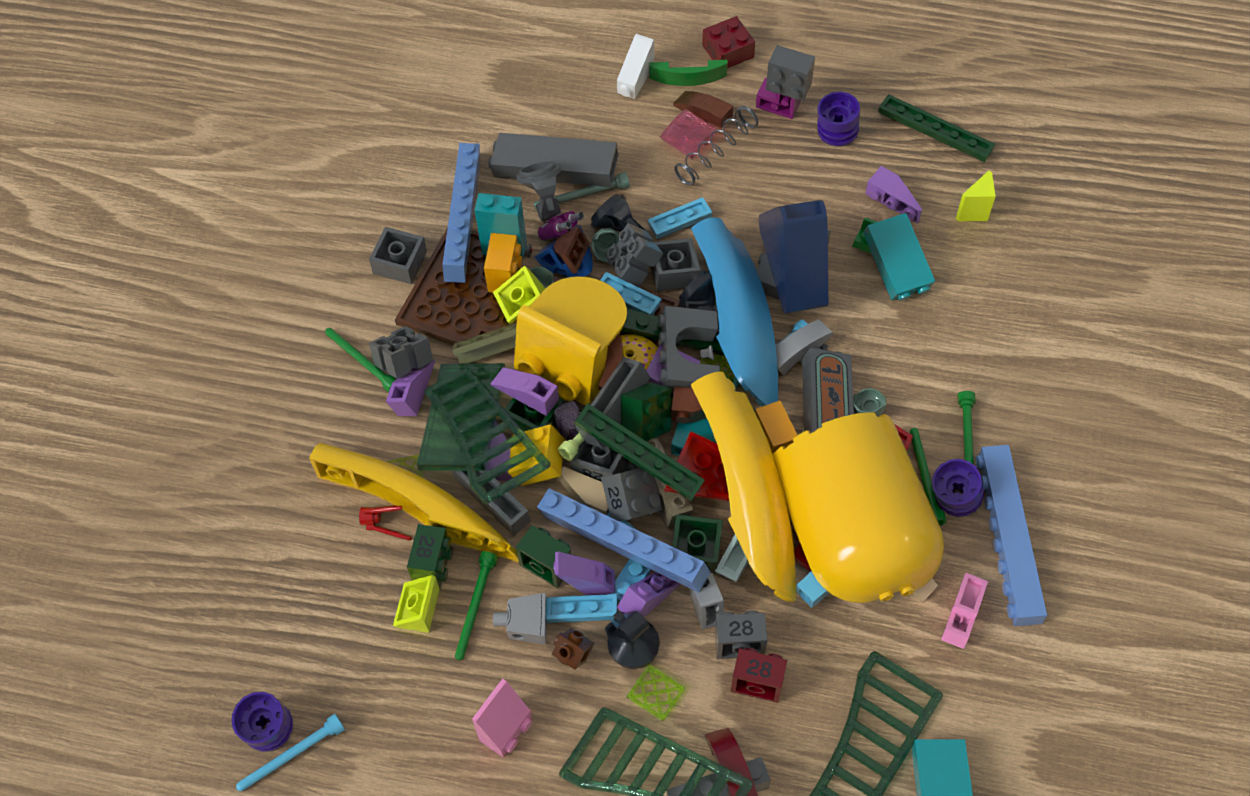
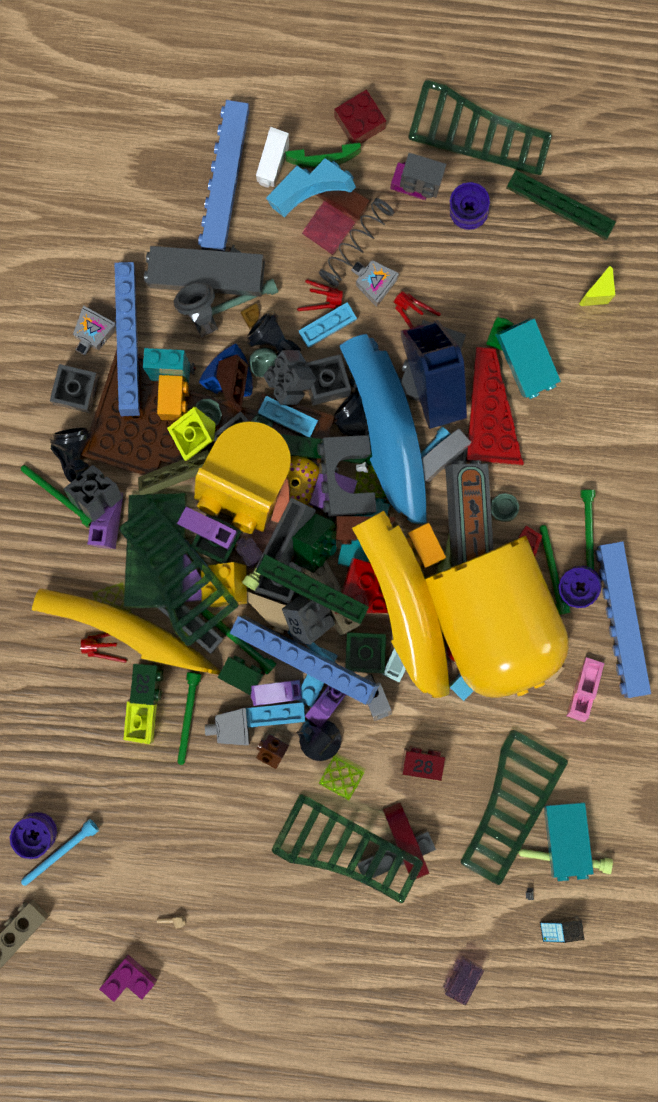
camera: 10 degrees left, 25 degrees up
(381, 306) = (68, 447): none -> black piece
(427, 206) = (92, 330): none -> light grey torso
(502, 719) = (224, 819): bright pink slope -> none
(559, 225) = (216, 346): magenta piece -> none
(576, 549) = (266, 664): none -> green piece
(585, 80) = (225, 176): none -> medium blue brick
(595, 203) = (251, 315): none -> pearl gold tile
(666, 92) = (302, 184): none -> medium azure arch
(688, 192) = (333, 296): none -> red plant
(734, 181) = (374, 280): none -> light grey torso
(741, 632) = (406, 731): dark grey brick -> none
(764, 202) = (405, 301): none -> red plant
(856, 314) = (490, 414): none -> red wing
(866, 55) = (477, 112): none -> clear green bar
(893, 193) = (519, 280): medium lavender slope -> none

